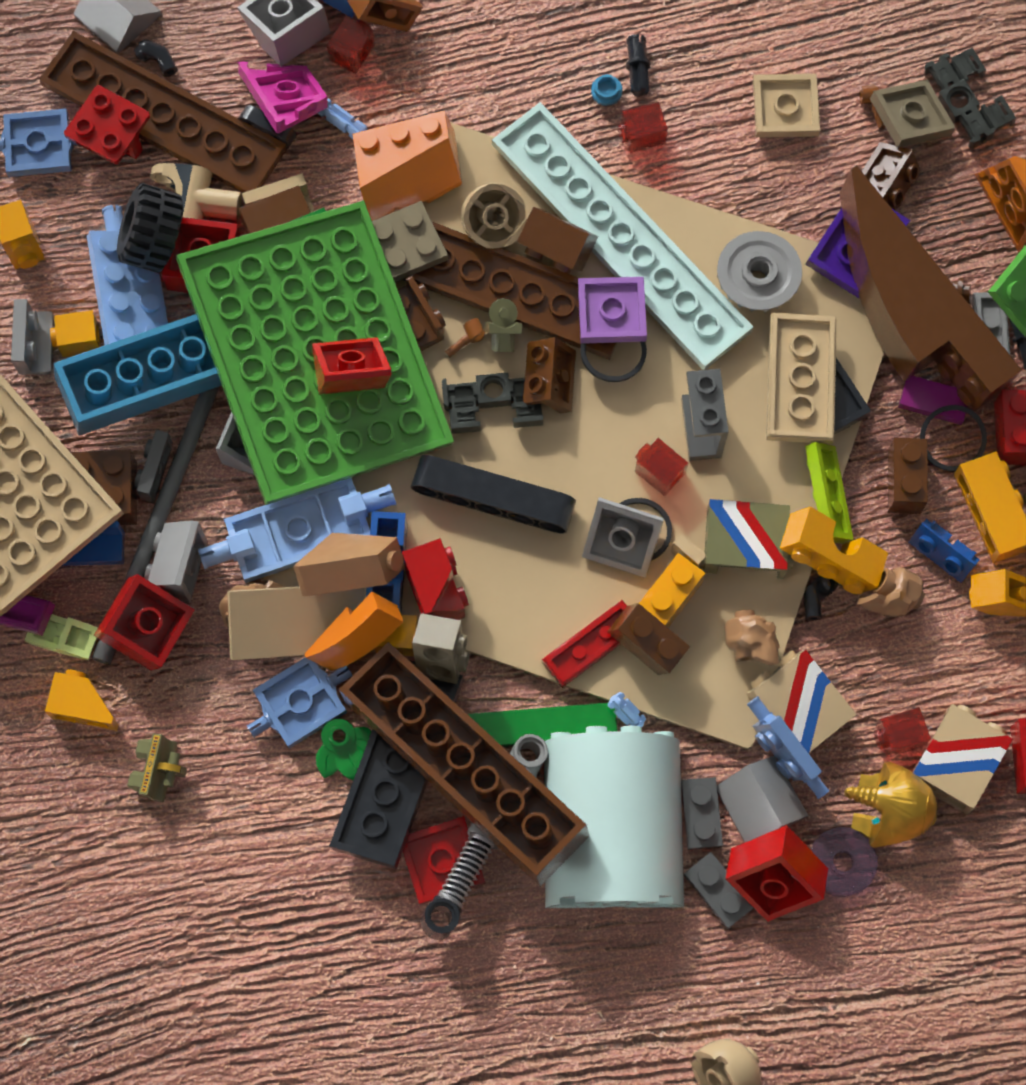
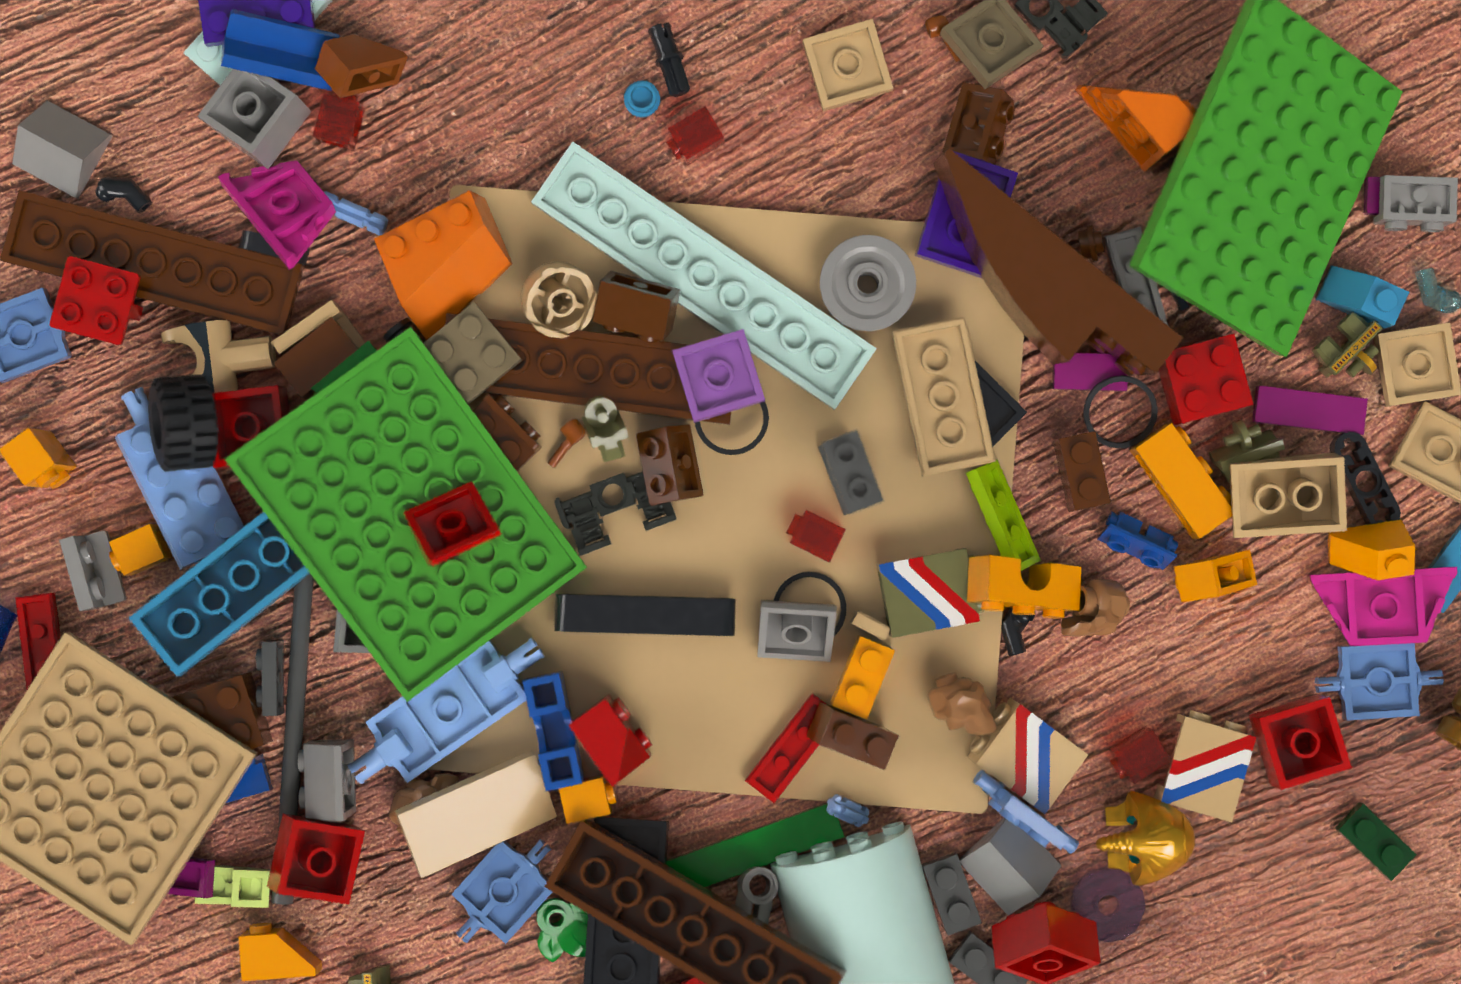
camera: 20 degrees left, 15 degrees up
(349, 563) = (515, 748): medium nougat slope -> none
(355, 632) = (545, 815): orange slope -> none
(440, 648) = (637, 810): dark tan brick -> none

